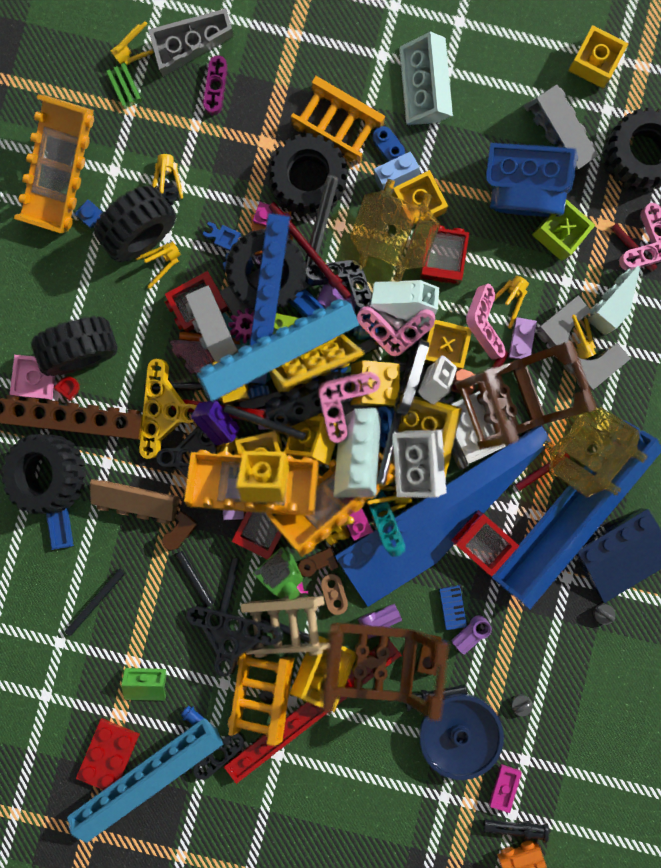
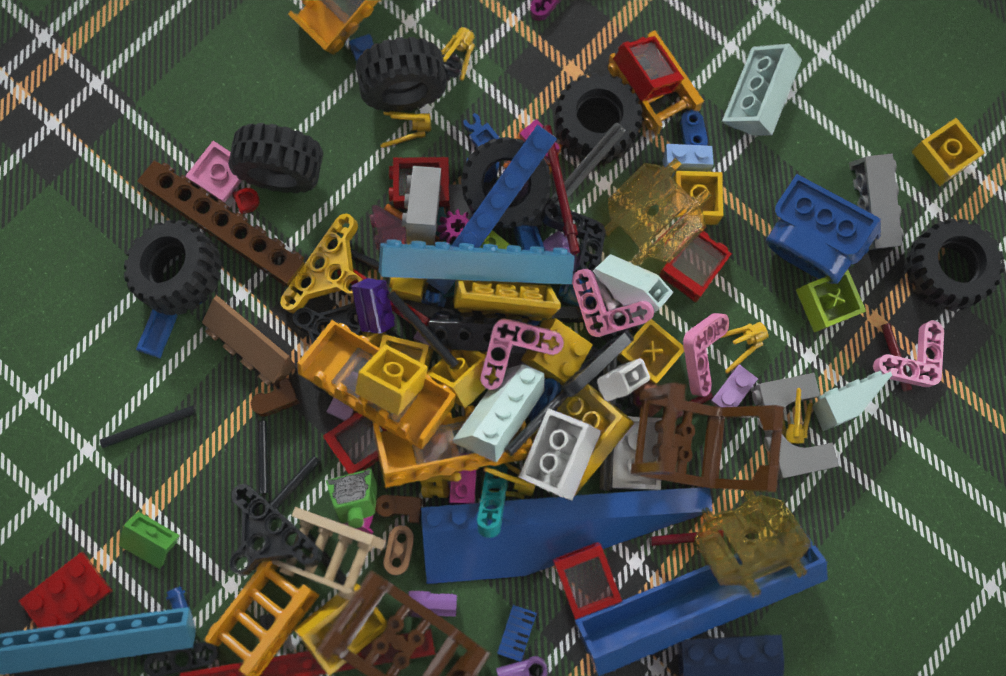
camera: 20 degrees right, 10 degrees down
(327, 112) = (647, 68): none -> red window

